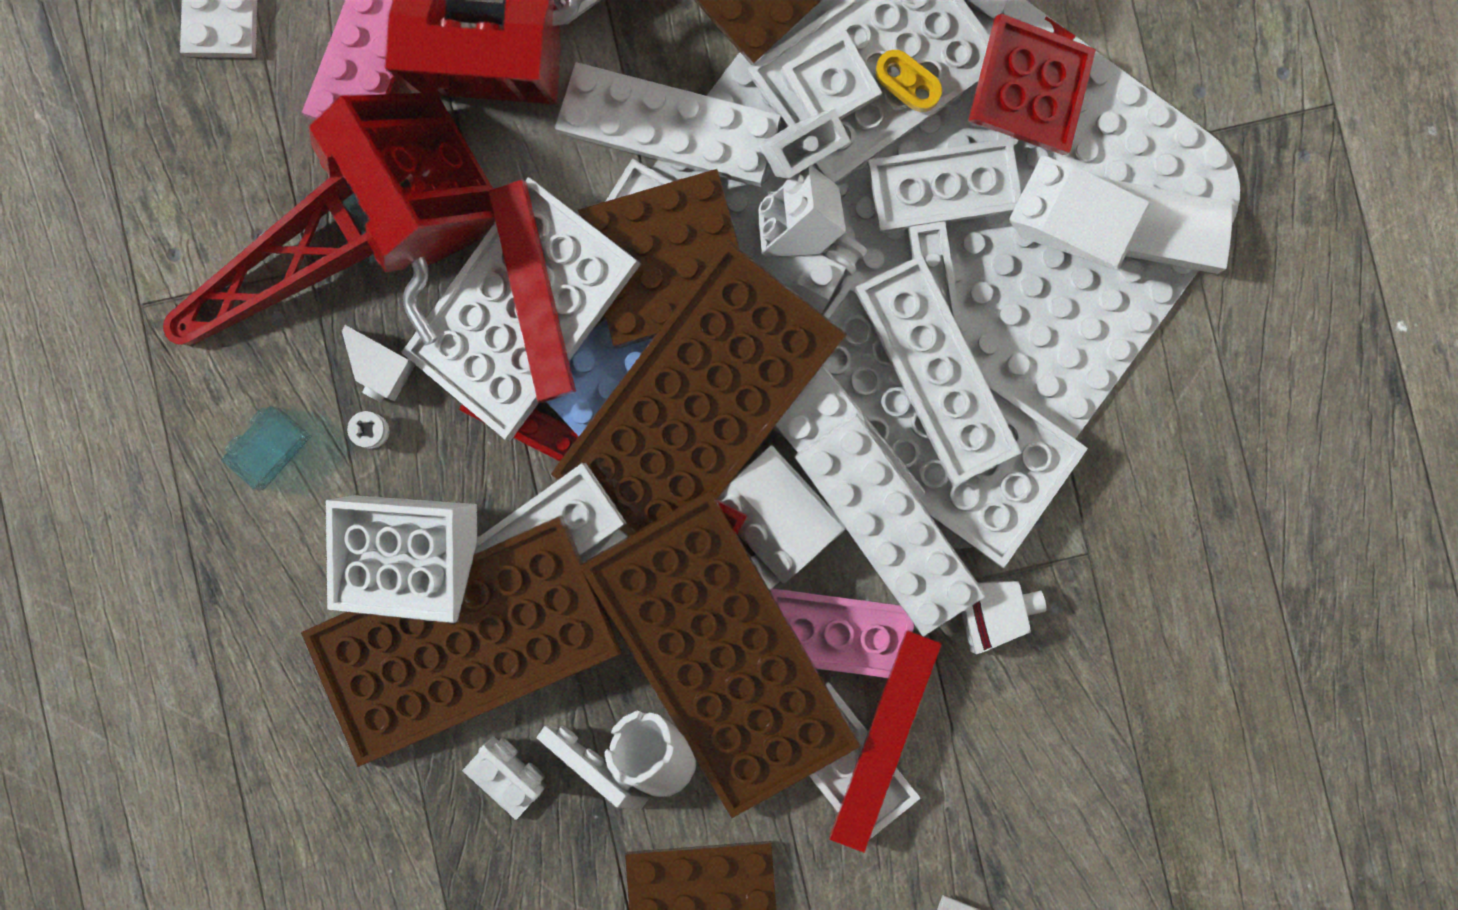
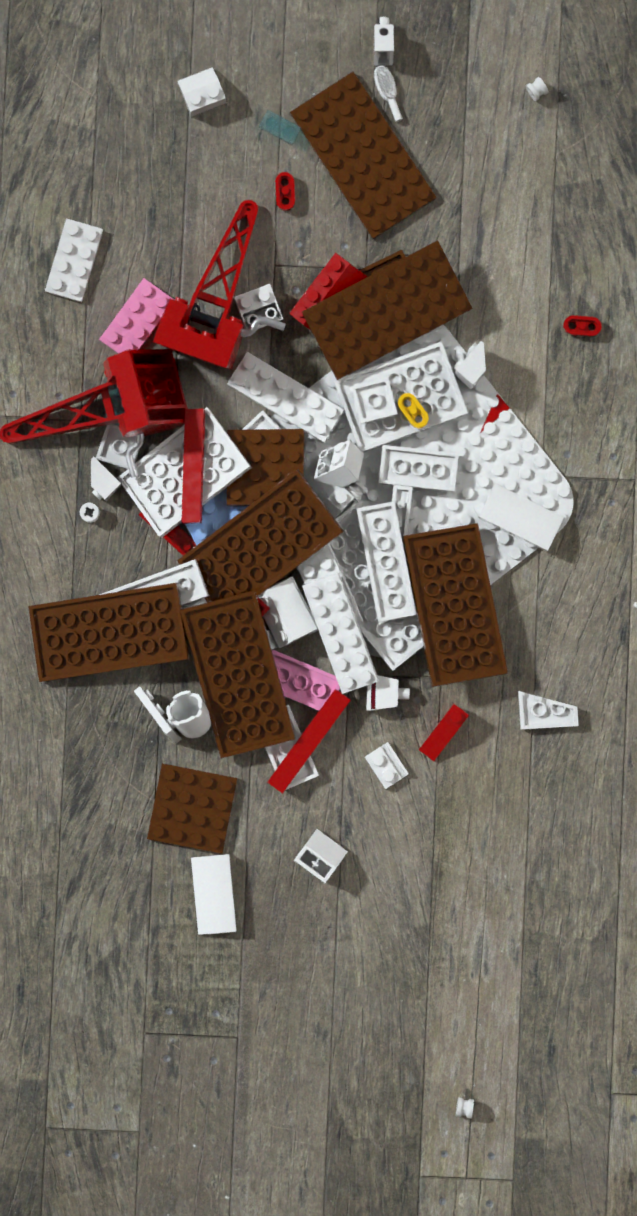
camera: 15 degrees right, 0 degrees up
(265, 447) = (35, 506): clear light blue brick -> none
(381, 298) = (114, 447): none -> white tile
(399, 556) = (90, 580): white slope -> none
(505, 776) = (111, 708): white bracket -> none
(804, 143) = (350, 429): white slope -> none
(1032, 84) = (476, 429): red plate -> none
(1037, 743) = (386, 765): none -> white plate
(1078, 213) = (479, 502): white slope -> none
(1086, 417) = (455, 605): none -> reddish brown plate
(1126, 652) = (443, 732): none -> red slope
(1299, 567) = (545, 713): none -> white wing

